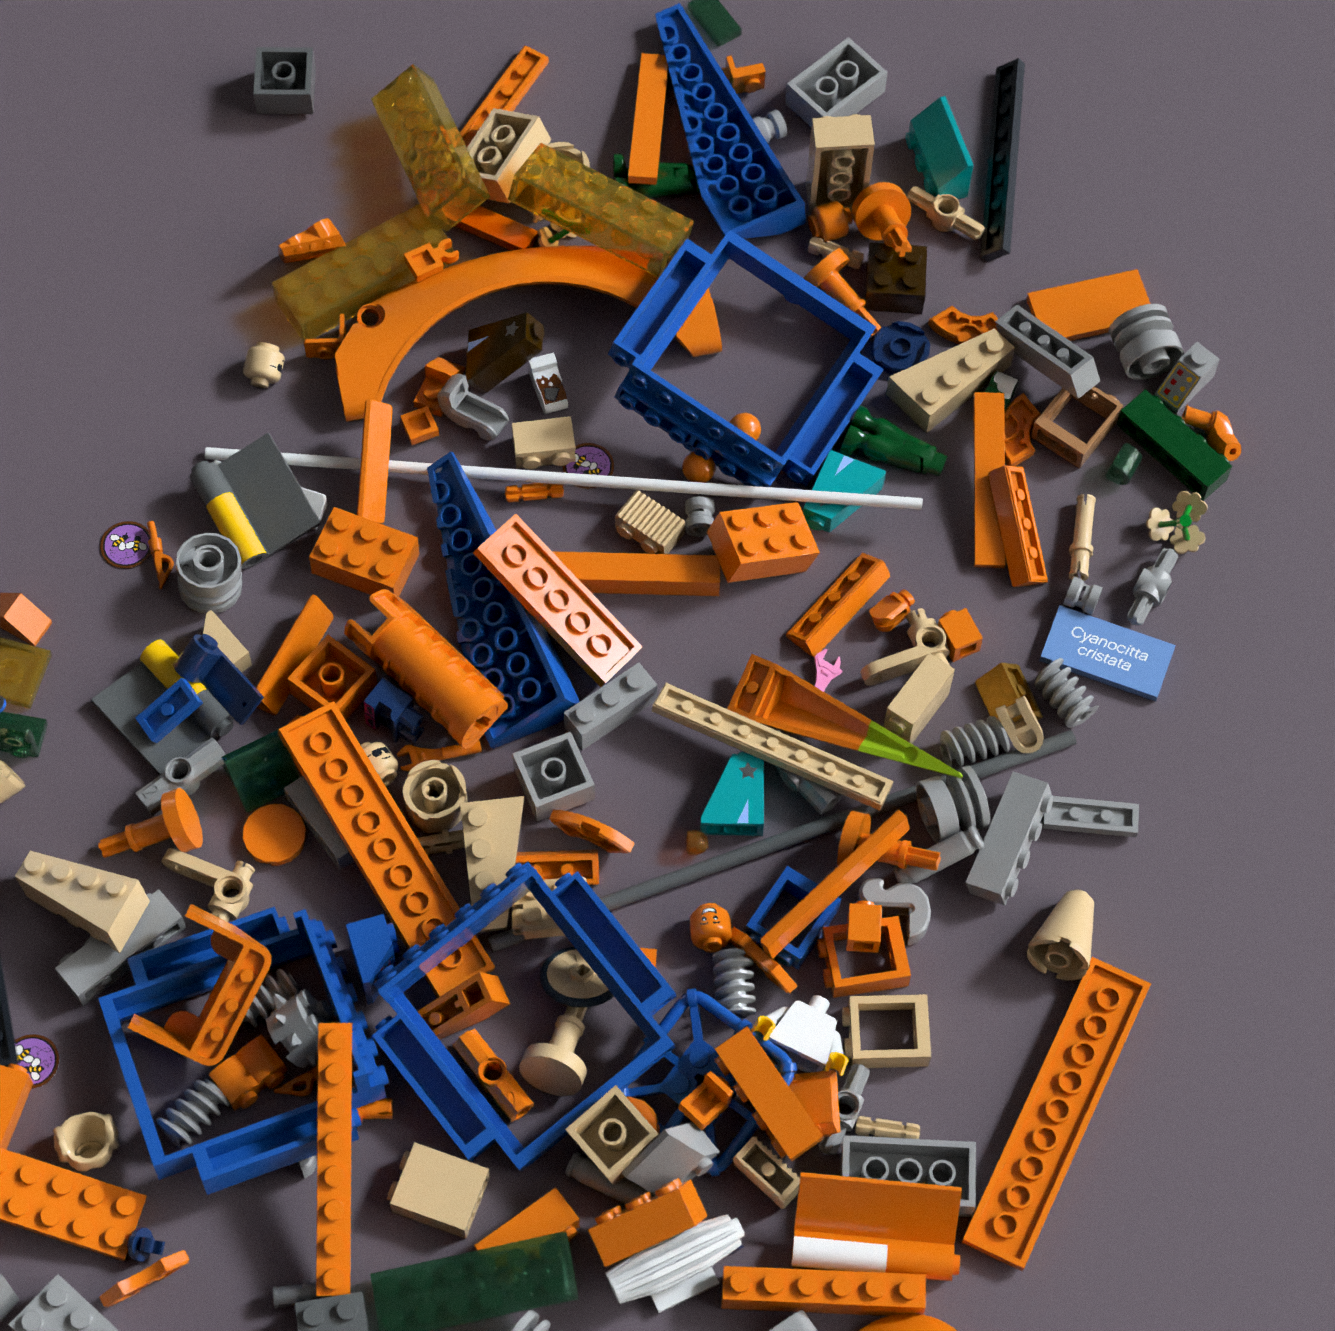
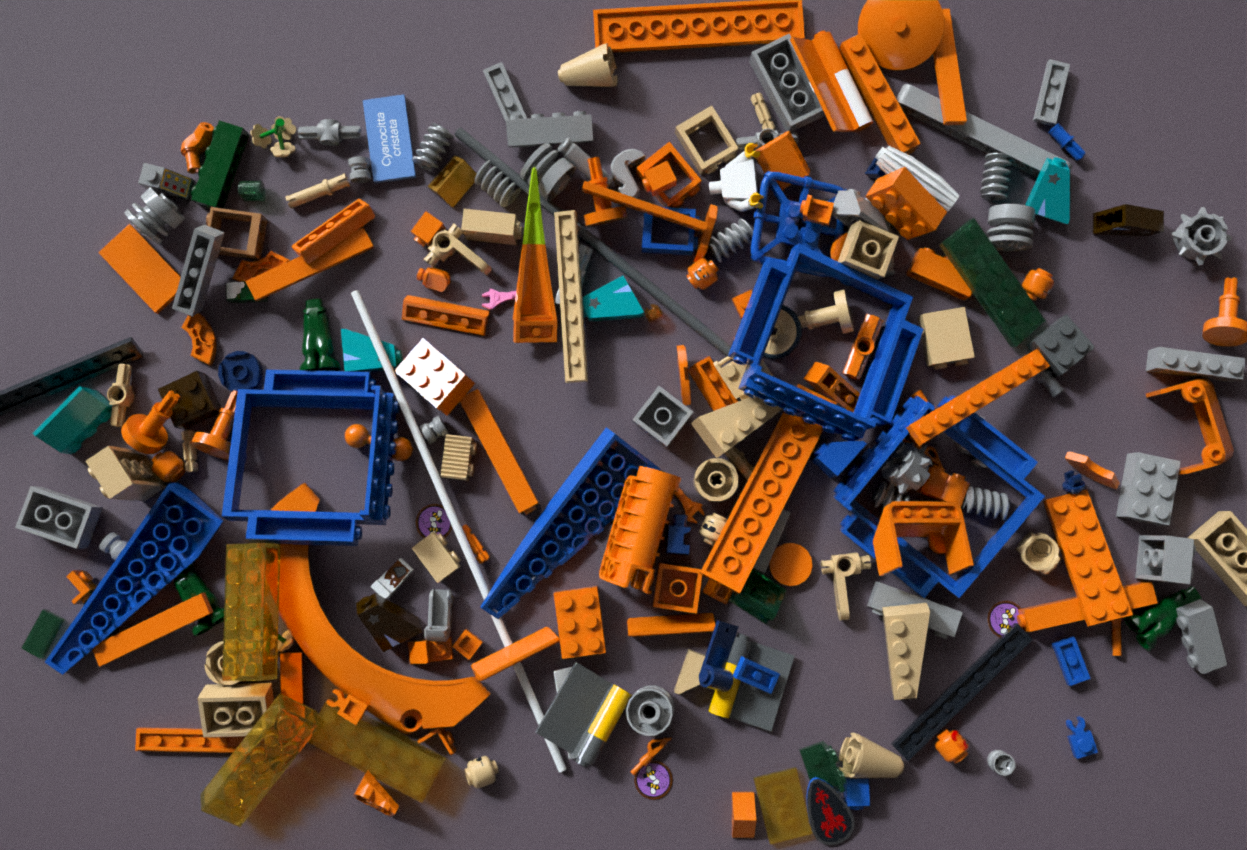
camera: 115 degrees left, 20 degrees up
(177, 822) = (823, 623): orange piece -> none
(197, 766) = (802, 646): light grey piece -> none
(557, 600) = (548, 479): plate -> none
(610, 706) = (595, 410): light grey brick -> none
(767, 1172) = (831, 159): tan brick -> none
(768, 1093) = (795, 175): orange brick -> none
(947, 380) = (254, 329): tan wedge -> none
(1025, 735) = (473, 153): tan plate -> none

